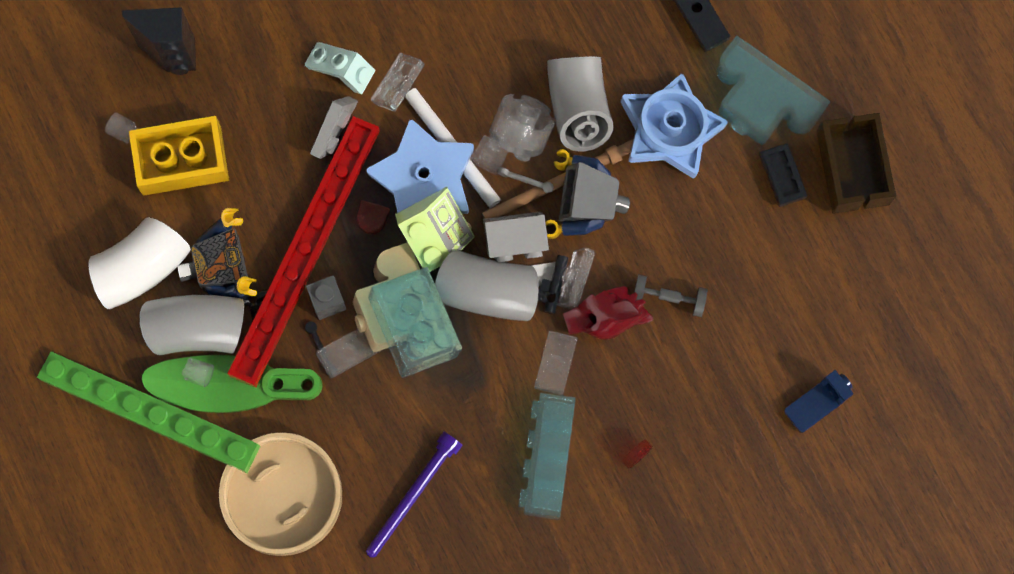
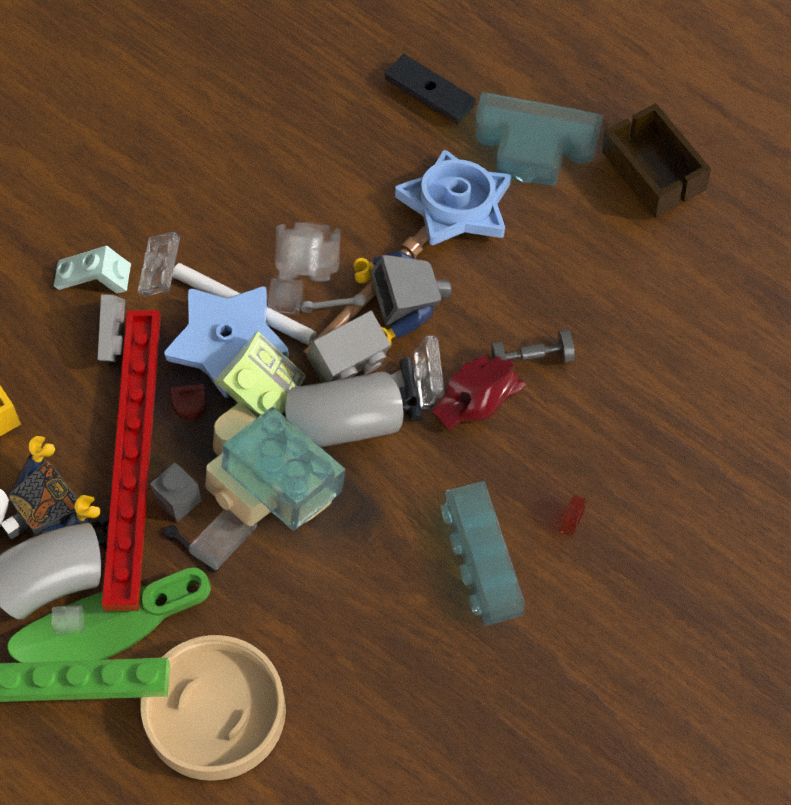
camera: 20 degrees left, 15 degrees down
(446, 448) = (371, 588): dark purple piece -> none
(555, 363) = (446, 460): clear plate -> none
(579, 102) = (355, 206): light grey brick -> none
(783, 175) = (589, 201): black plate -> none
(819, 401) = (734, 388): dark blue bracket -> none

